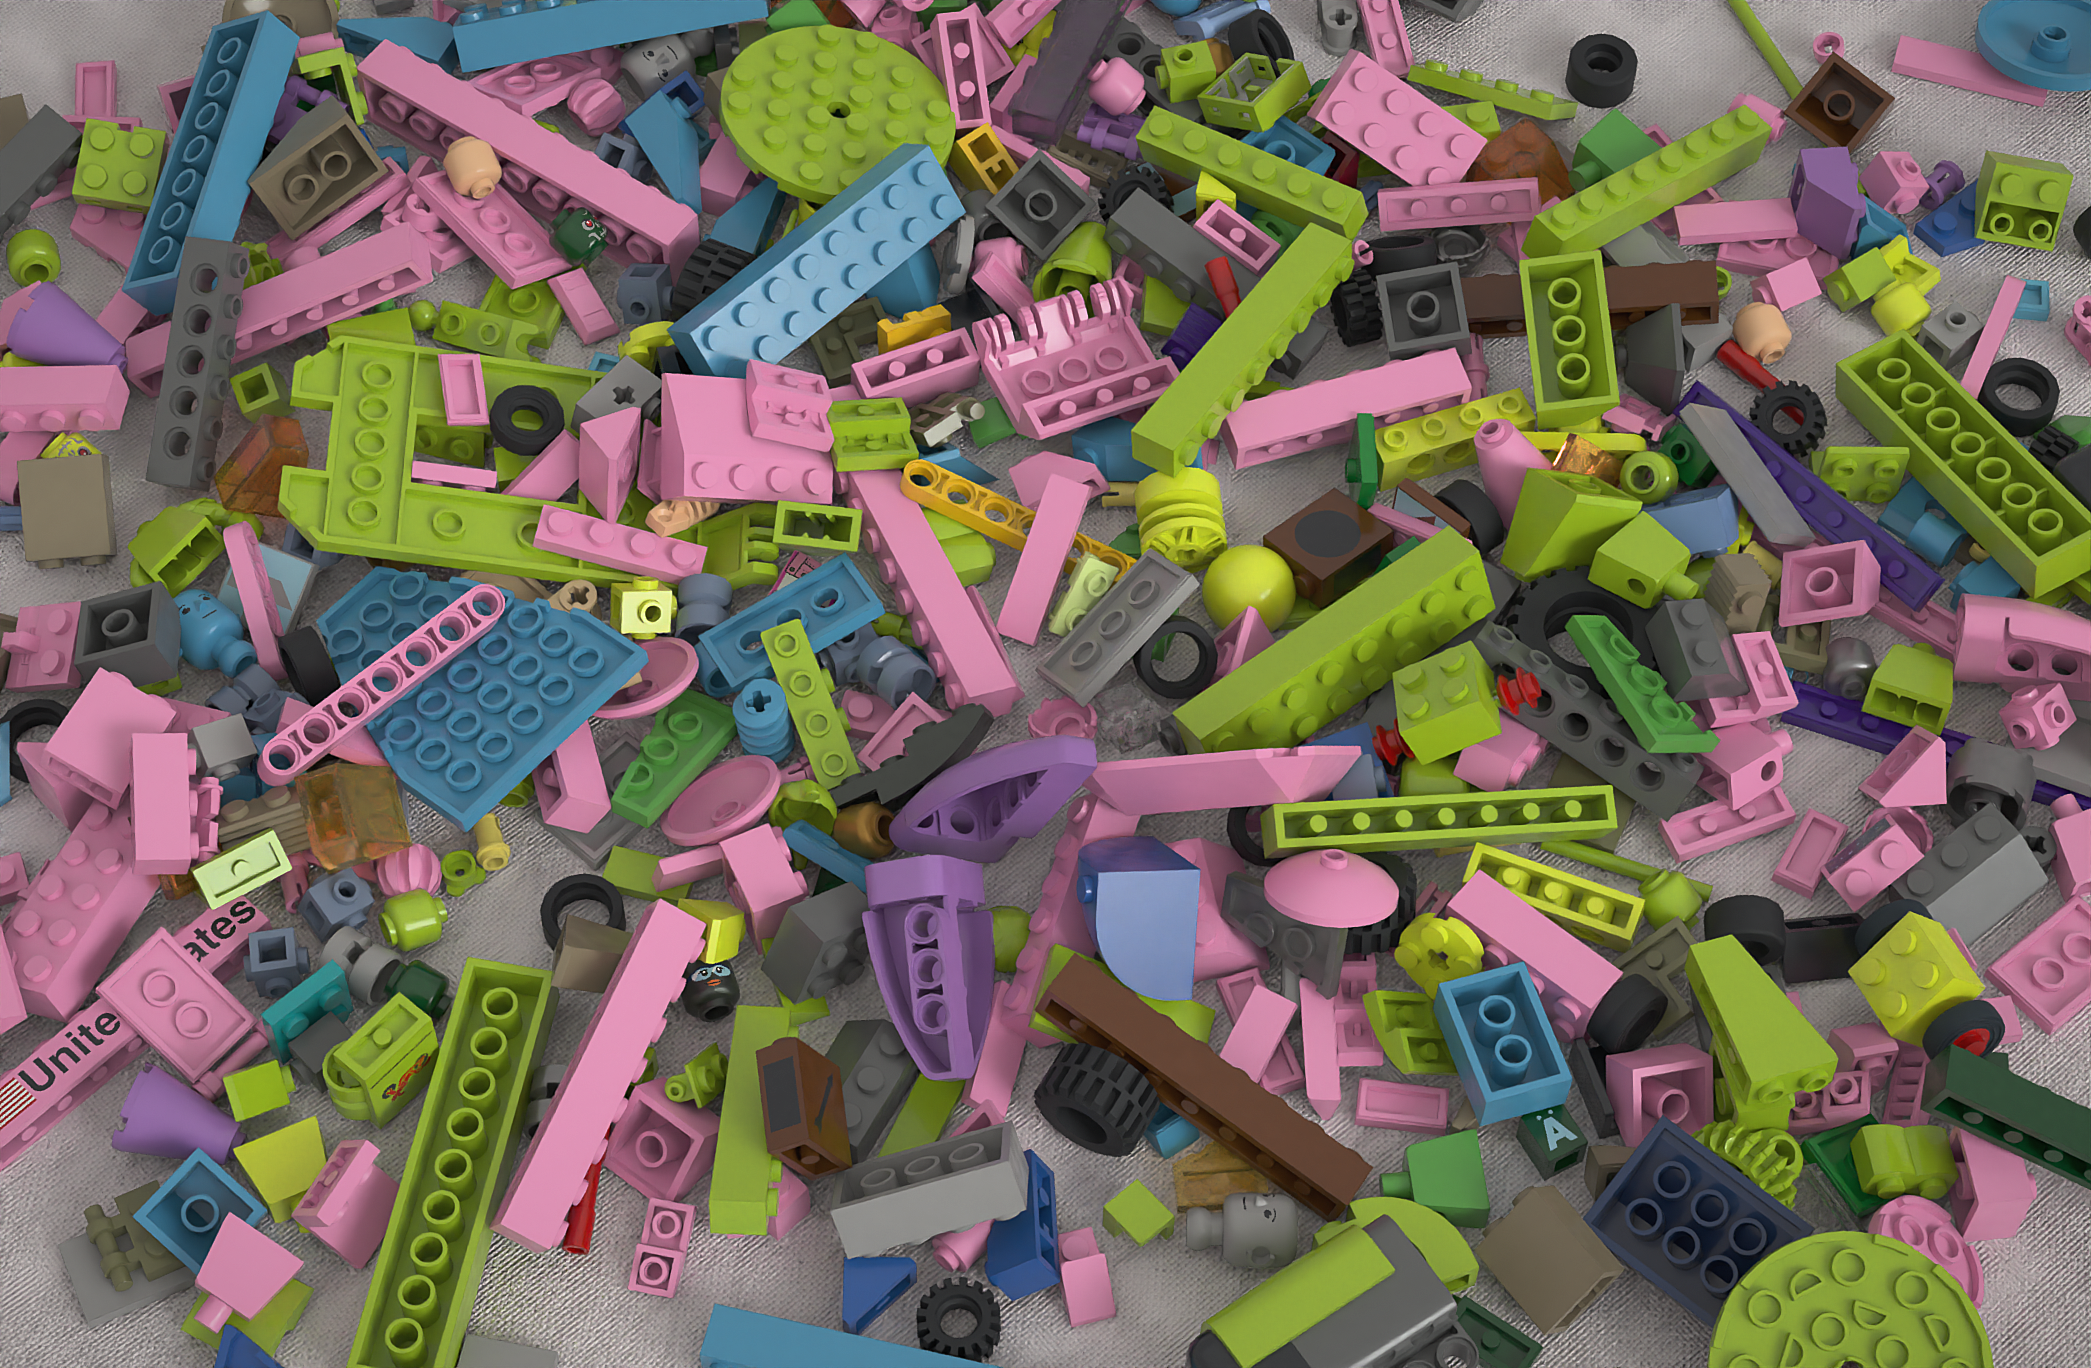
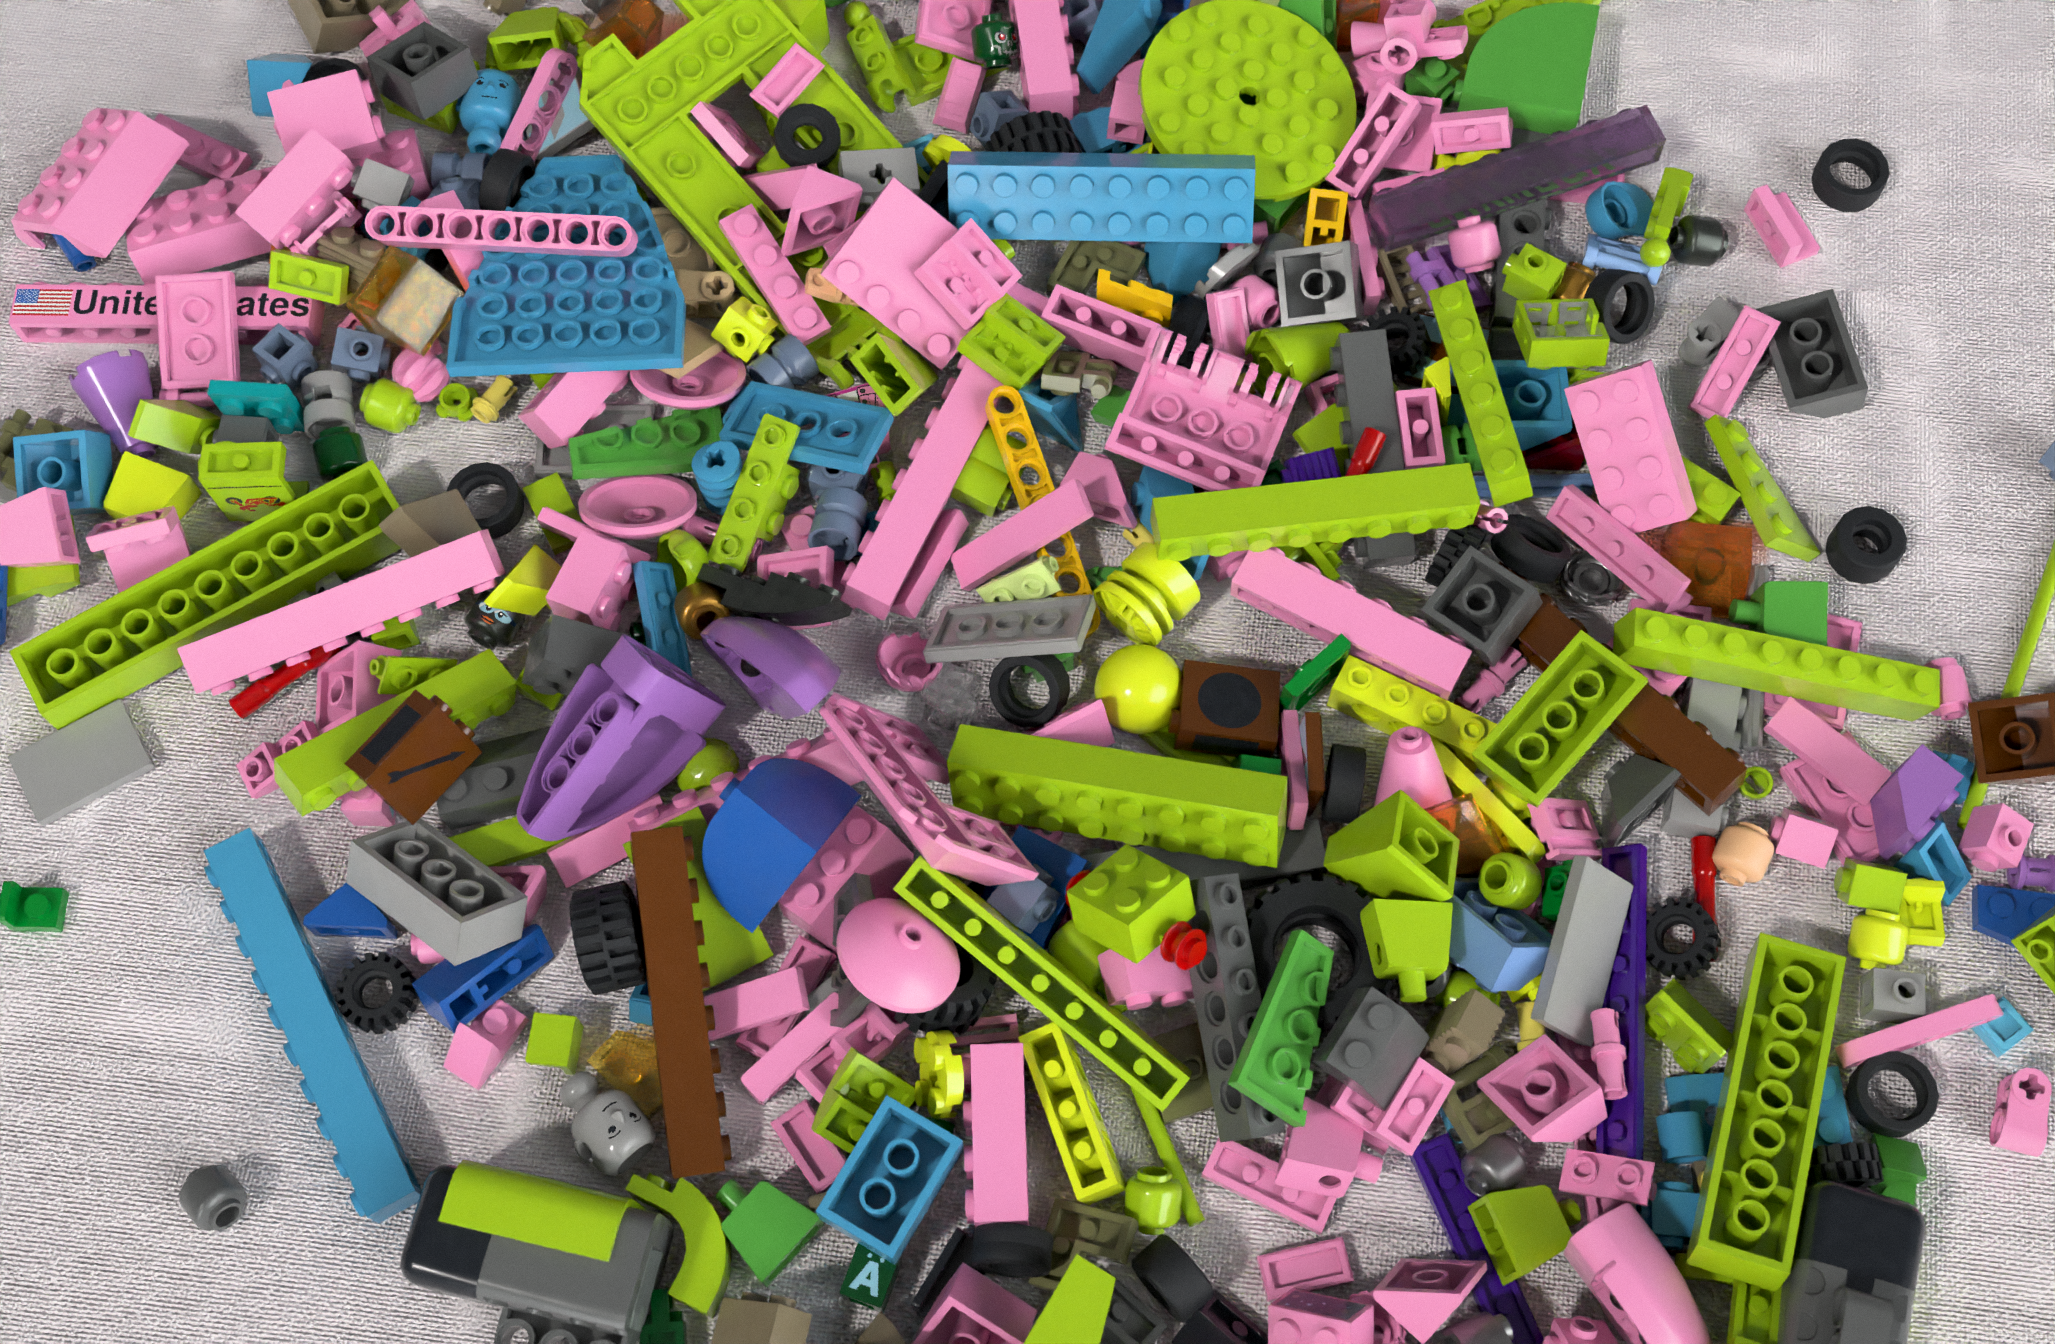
camera: 50 degrees right, 10 degrees up
(752, 200) = (1125, 114): none -> bright pink brick
(1835, 522) = (1608, 1053): none -> bright pink pin
(1925, 599) = (1608, 1177): none -> bright pink hinge

